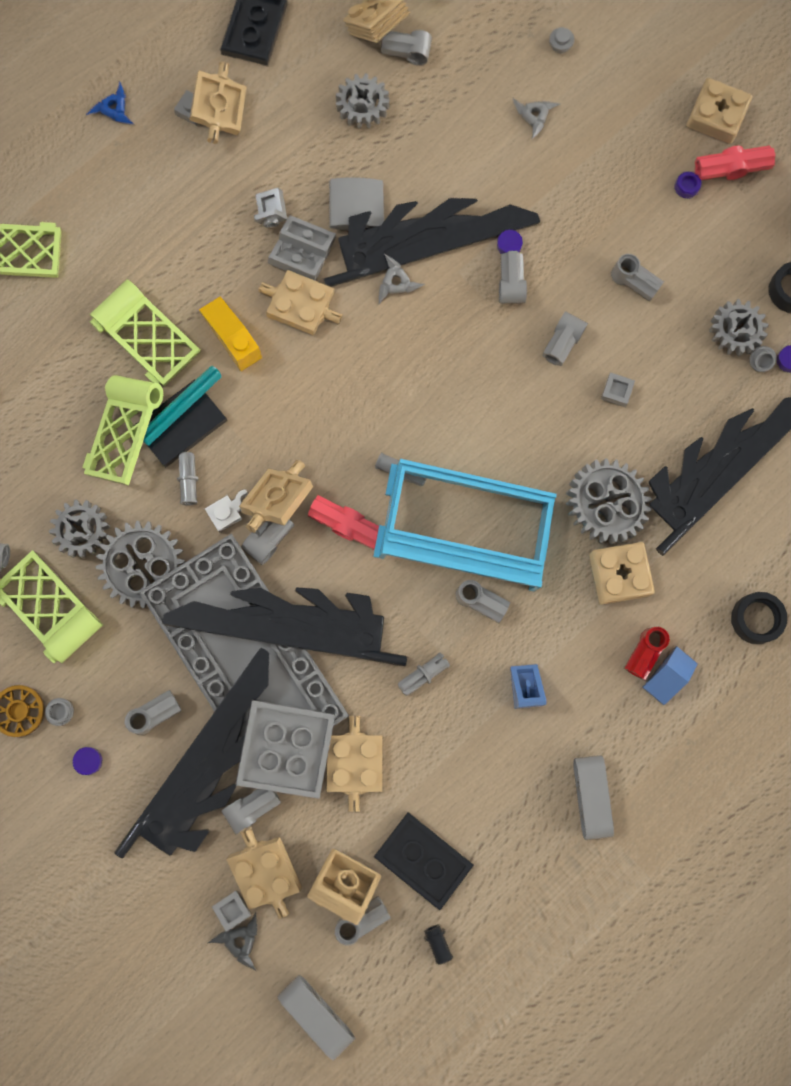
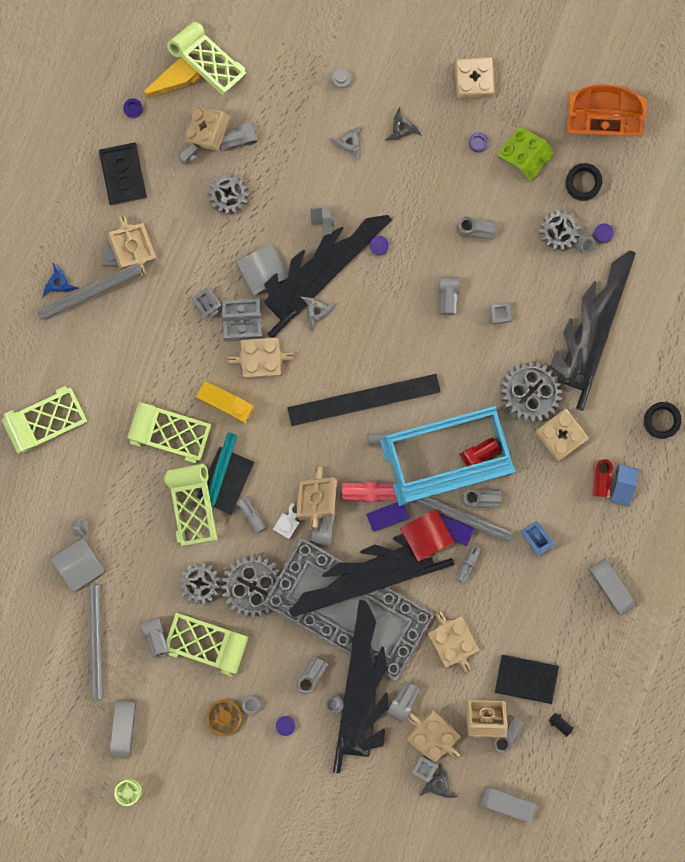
camera: 25 degrees left, 5 degrees up
(141, 129) = (89, 291): none -> light grey axle
(162, 766) = (334, 704): none -> light grey plate
(285, 749) = (407, 654): light grey plate -> none
(340, 37) = (189, 155): none -> light grey plate
(353, 564) = (387, 516): none -> dark purple tile
(389, 611) = (426, 535): none -> red slope
(398, 411) = (364, 400): none -> black tile
(425, 622) = (459, 532): none -> dark purple tile
(447, 613) = (465, 518): none -> light grey axle
(459, 177) = (322, 215): none -> light grey bracket
(509, 543) = (480, 453): none -> red piece
(512, 283) = (395, 274): light grey piece -> none
(605, 118) = (397, 133): none -> dark grey piece
(735, 162) = (502, 112): coral piece -> none
(743, 221) = (526, 152): none -> lime bracket

